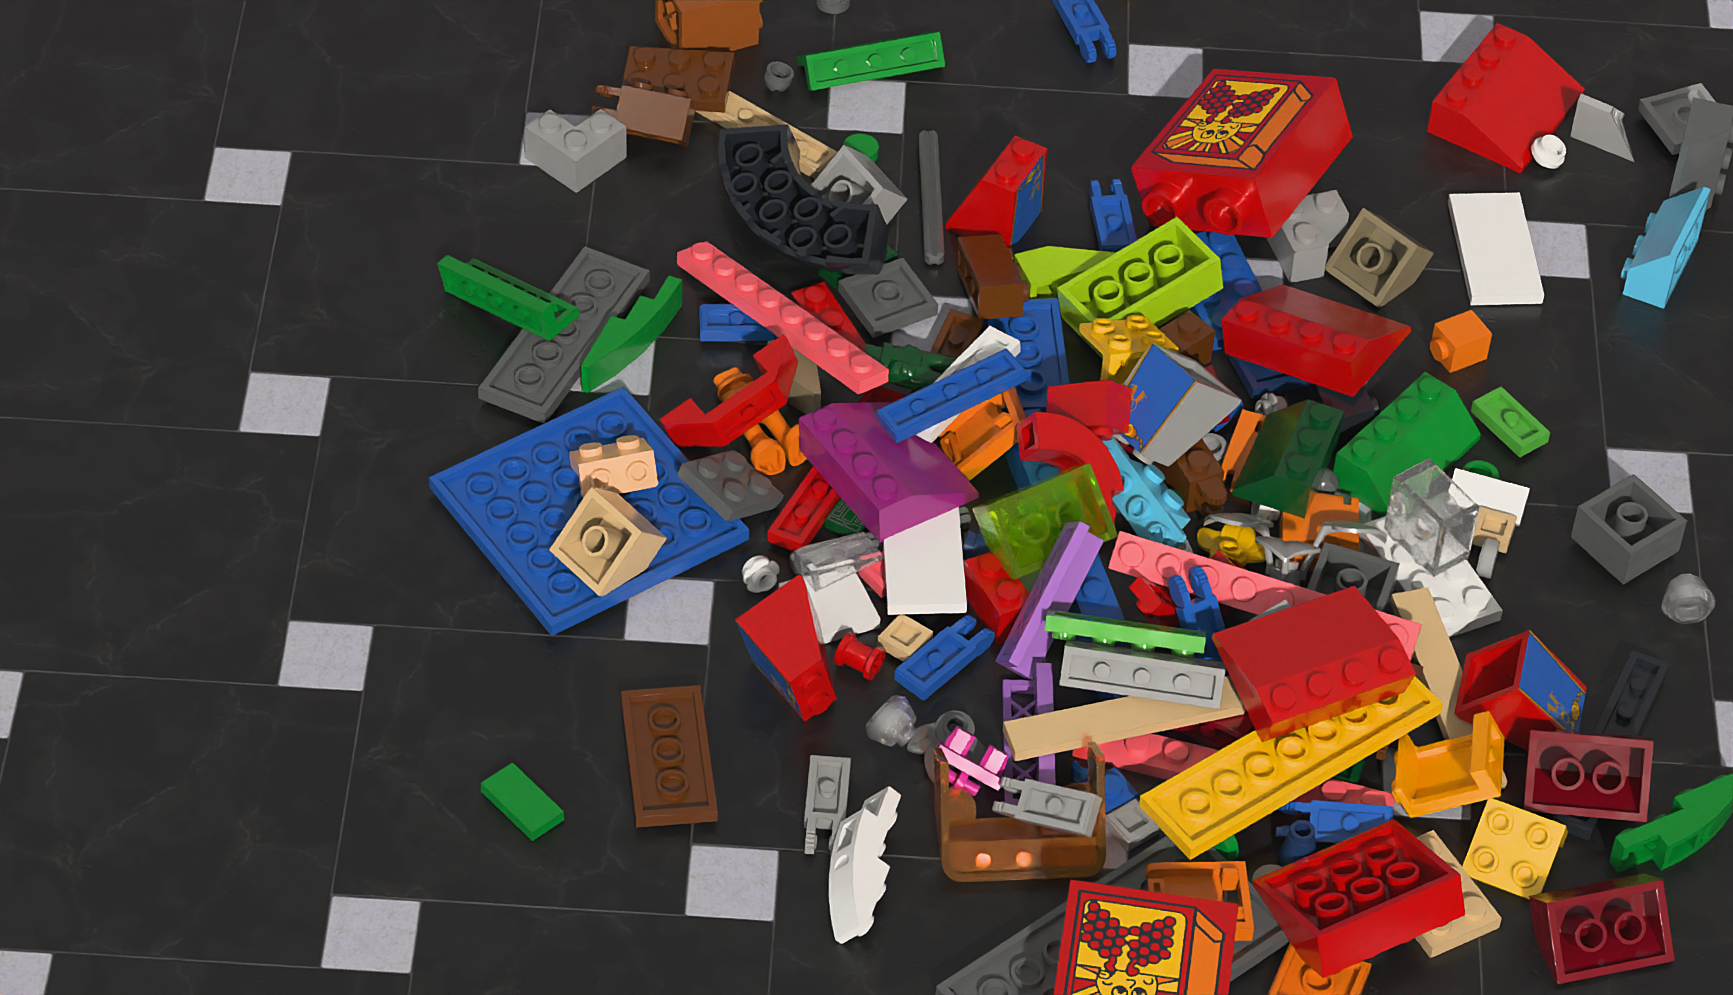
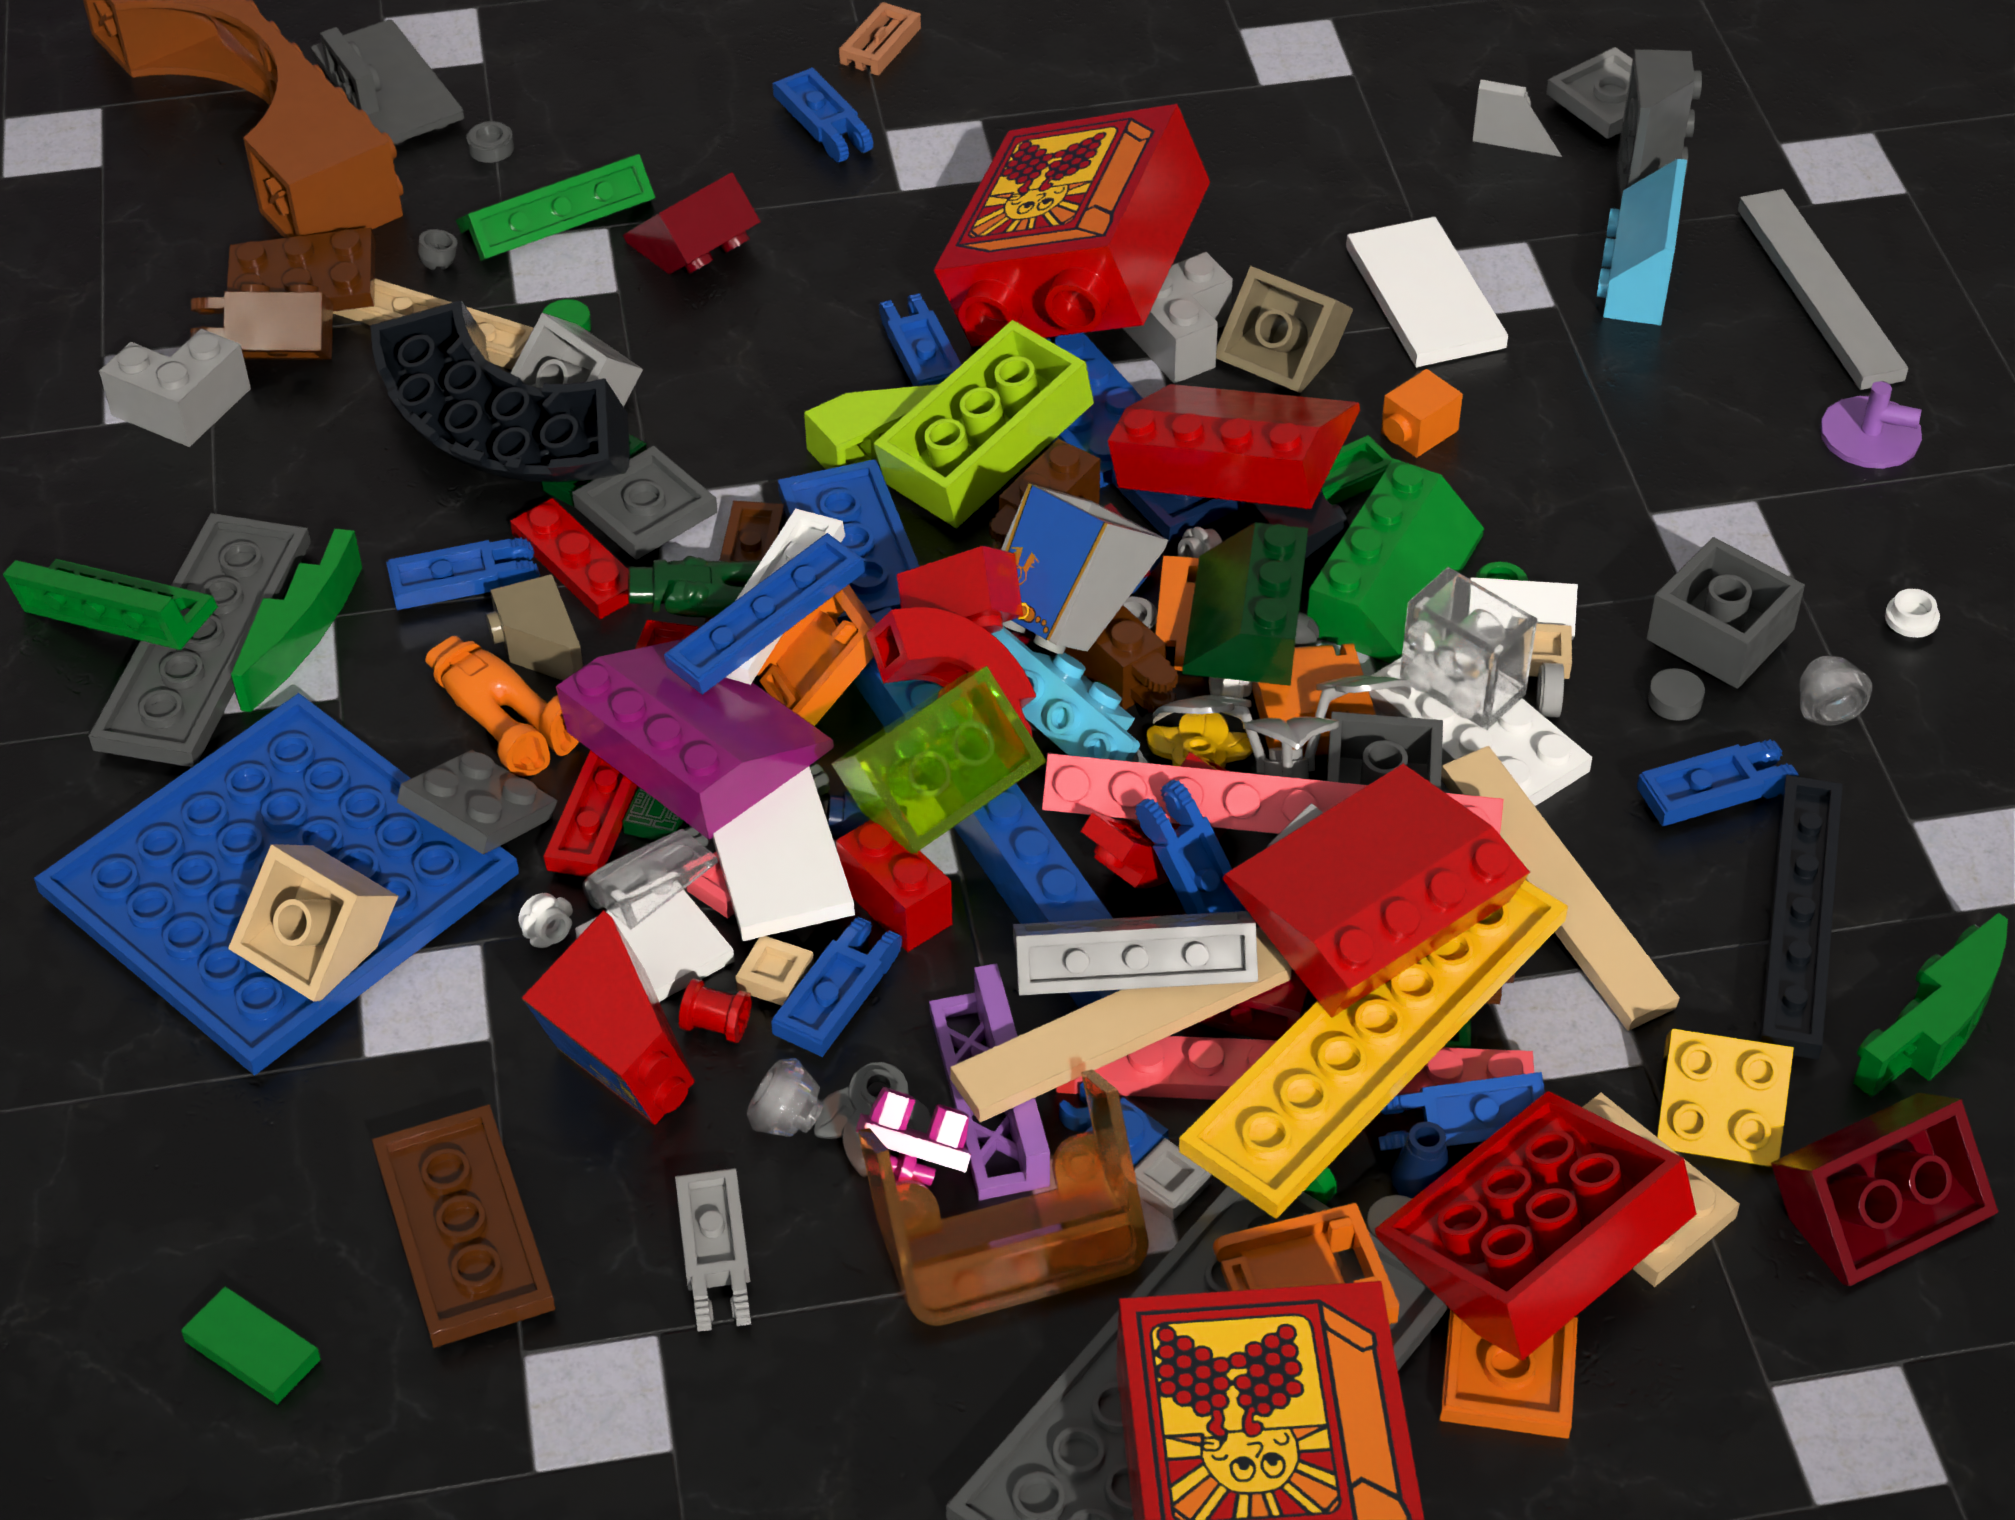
camera: 10 degrees left, 0 degrees up
(615, 466) = (305, 808): light nougat bracket -> none
(692, 428) = (404, 730): red slope -> none
(782, 317) = (508, 555): coral plate -> none
(855, 865) = (780, 1342): white slope -> none
(931, 197) = (674, 364): dark grey axle -> none
(969, 95) = (696, 226): none -> dark red slope
(991, 277) = (780, 447): reddish brown brick -> none
(1005, 196) = (773, 342): red slope -> none
(1051, 806) = (1052, 1181): light grey hinge -> none
(1053, 590) = (972, 872): medium lavender fence -> none
(1109, 630) = (1118, 897): plate -> none
(1123, 343) = (983, 497): yellow bracket -> none
(1397, 373) = (1355, 470): none -> green tile
(1450, 770) = (1602, 1000): light orange panel -> none
(1504, 99) = (1380, 111): red slope -> none
(1510, 421) = (1518, 503): bright green plate -> none
(1520, 687) = (1664, 870): red slope -> none
(1548, 151) = (1455, 161): white plate -> none
(1578, 579) = (1676, 694): none -> dark grey tile
(1588, 774) = (1796, 964): dark red slope -> none
(1590, 642) = (1714, 781): none -> blue hinge

